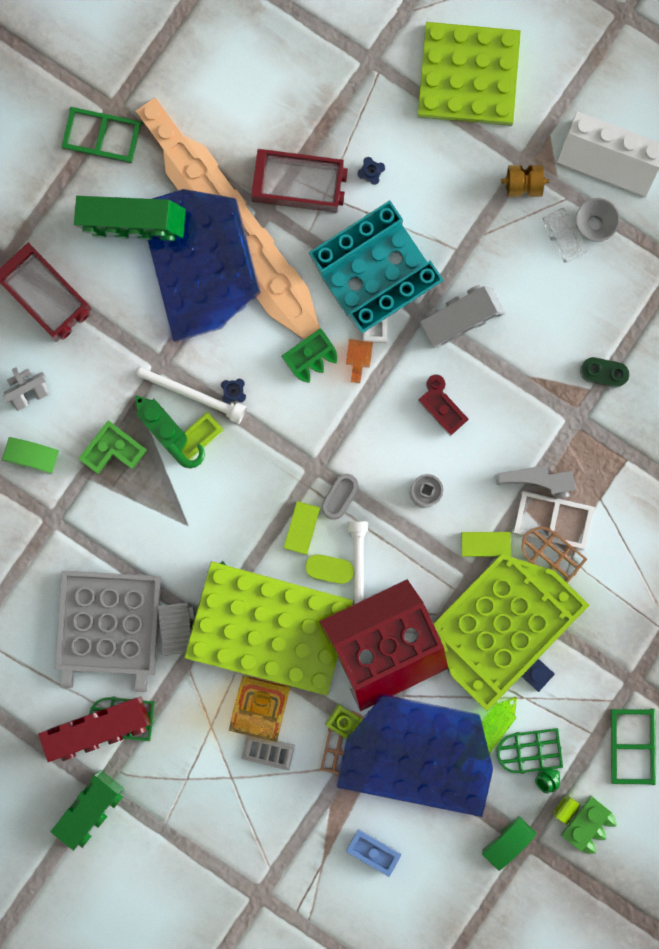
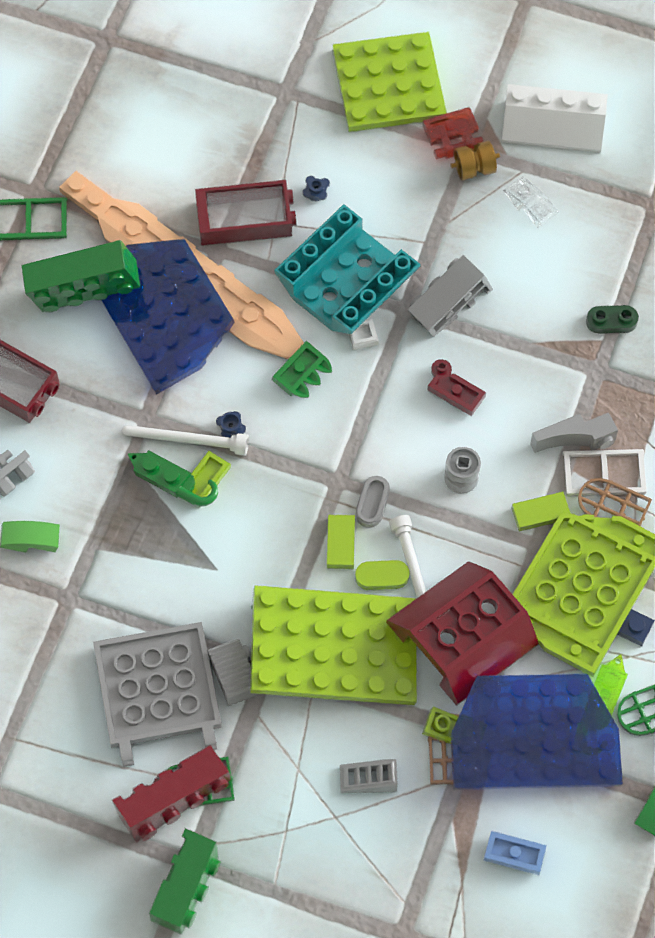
camera: 10 degrees left, 20 degrees down
(112, 442) = (115, 503): bright green plate -> none
(259, 708) = (347, 733): clear yellow slope -> none
(359, 356) = (353, 362): clear orange plate -> none
(513, 137) = (449, 127): none -> clear red plate
(605, 212) = (559, 170): light grey piece -> none

